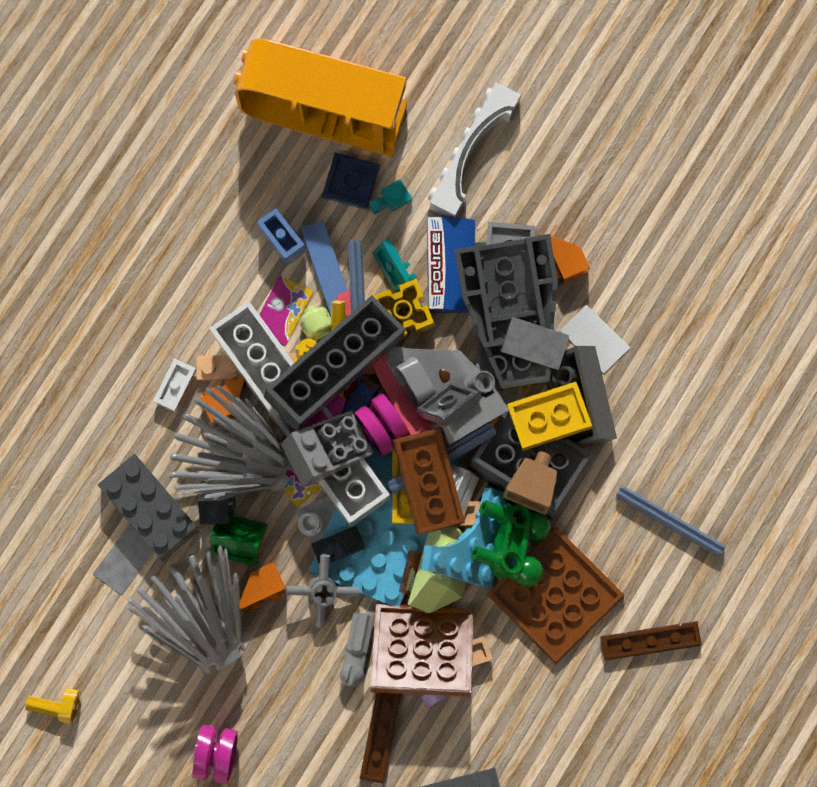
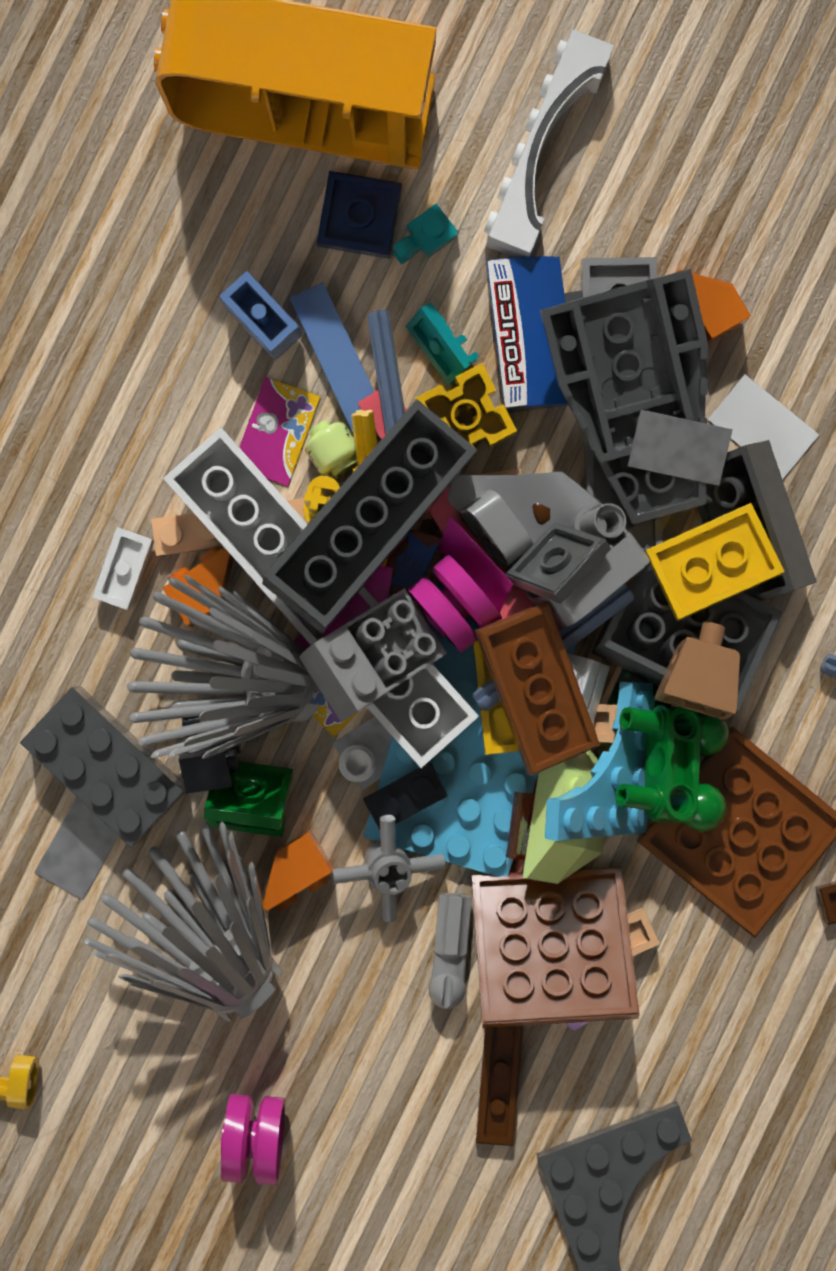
camera: 10 degrees left, 10 degrees up
(399, 401) = (476, 563): none -> dark pink sticker

